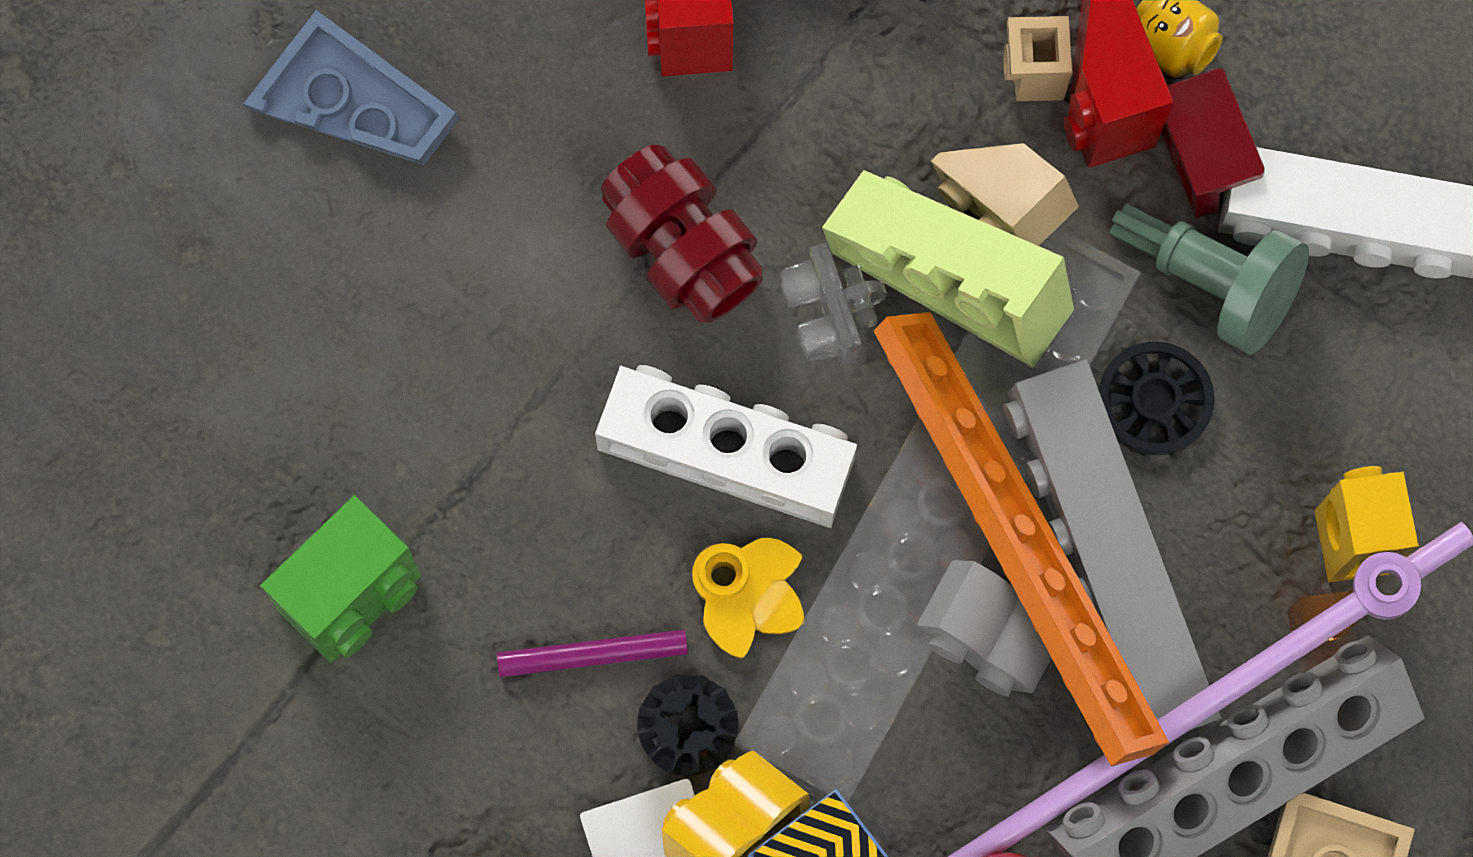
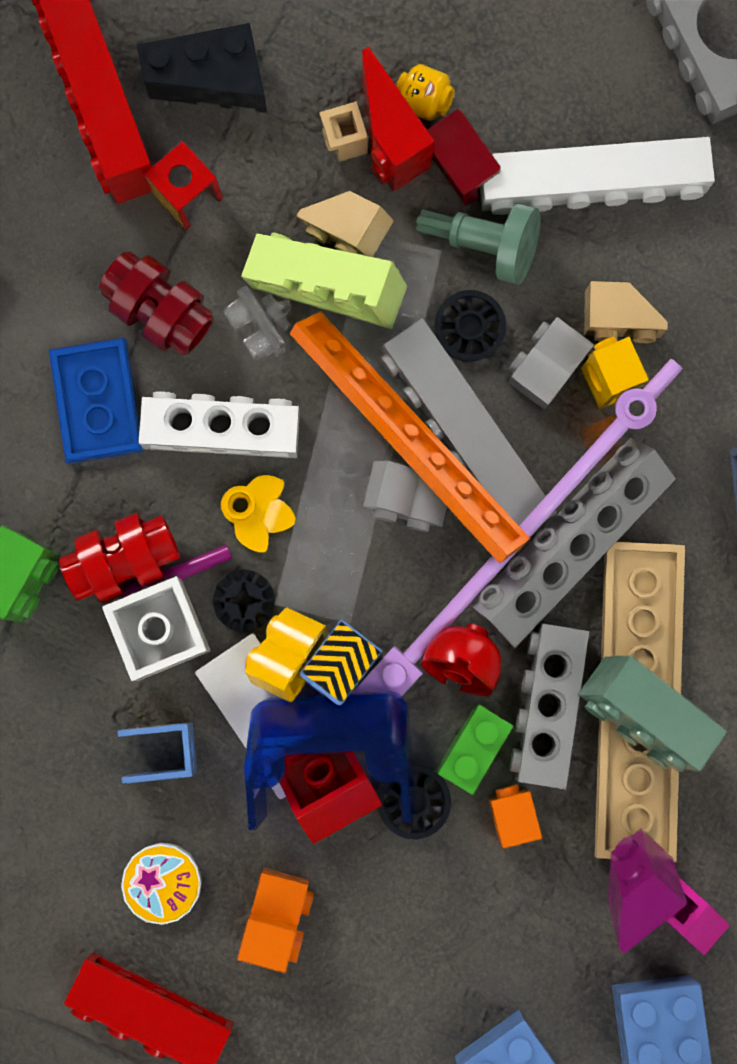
camera: 20 degrees left, 10 degrees up
(493, 603) = (104, 564): none -> red piece
(540, 727) = (156, 629): none -> white brick
(545, 357) = (96, 400): none -> blue tile
(753, 85) = (177, 198): none -> red piece
(1267, 486) = (550, 362): none -> light grey brick
(1399, 434) = (620, 312): none -> tan slope

